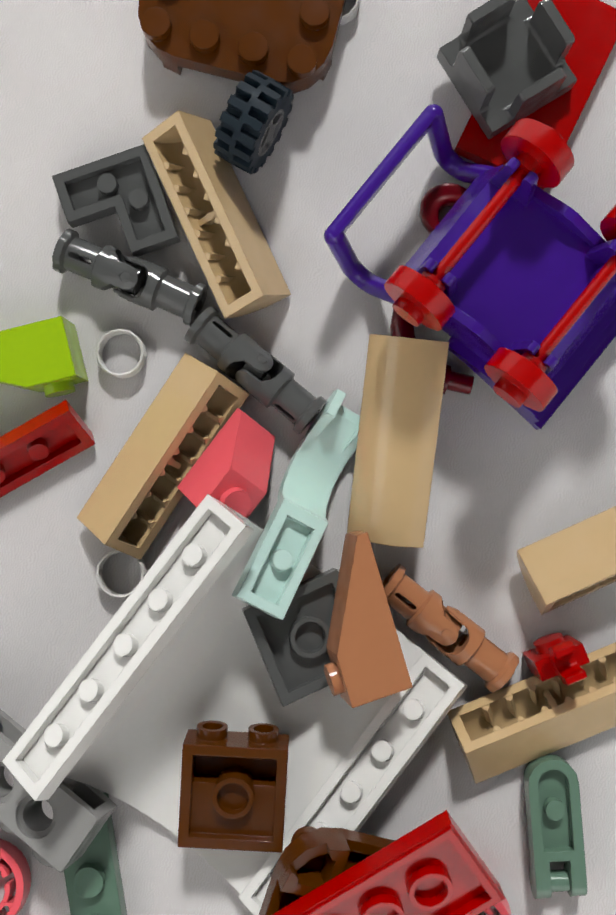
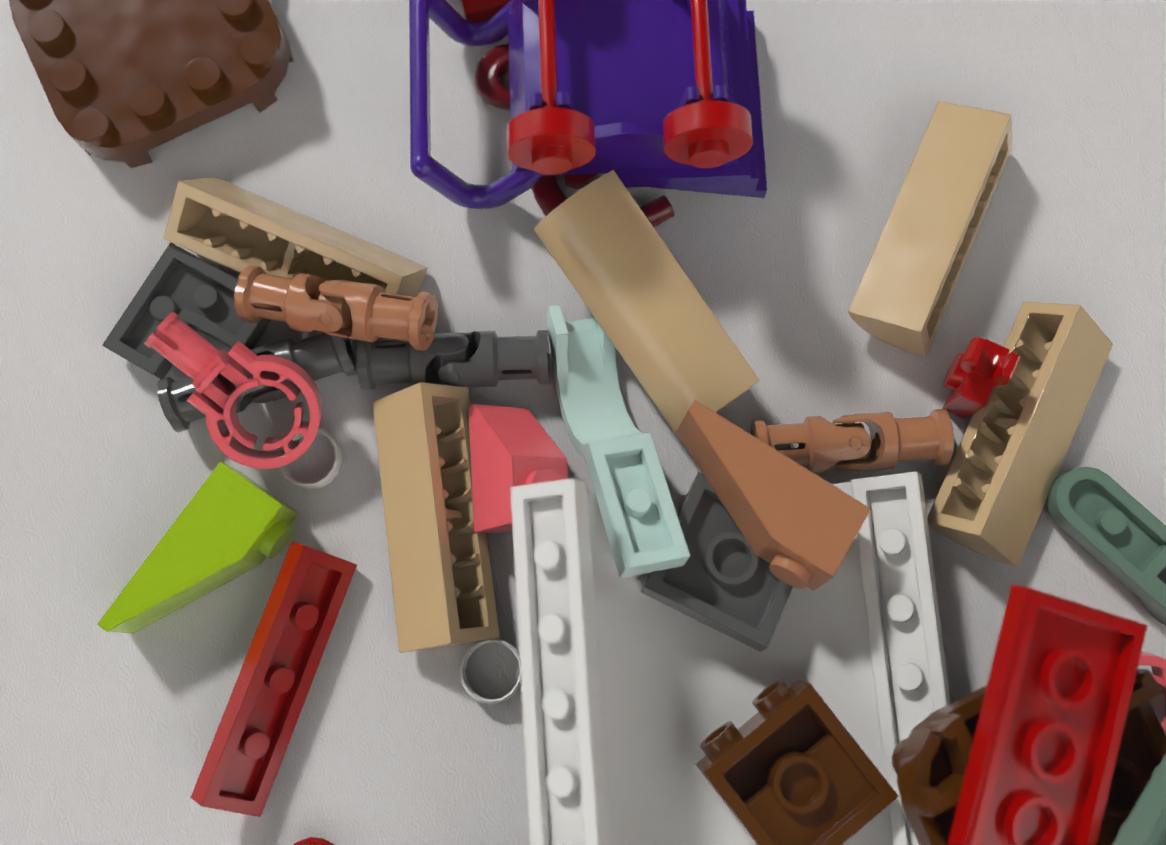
camera: 40 degrees left, 10 degrees down
(105, 267) = (219, 401): none -> coral pin
(206, 280) = (336, 307): none -> nougat piece
(253, 121) = (258, 137): black wheel -> none

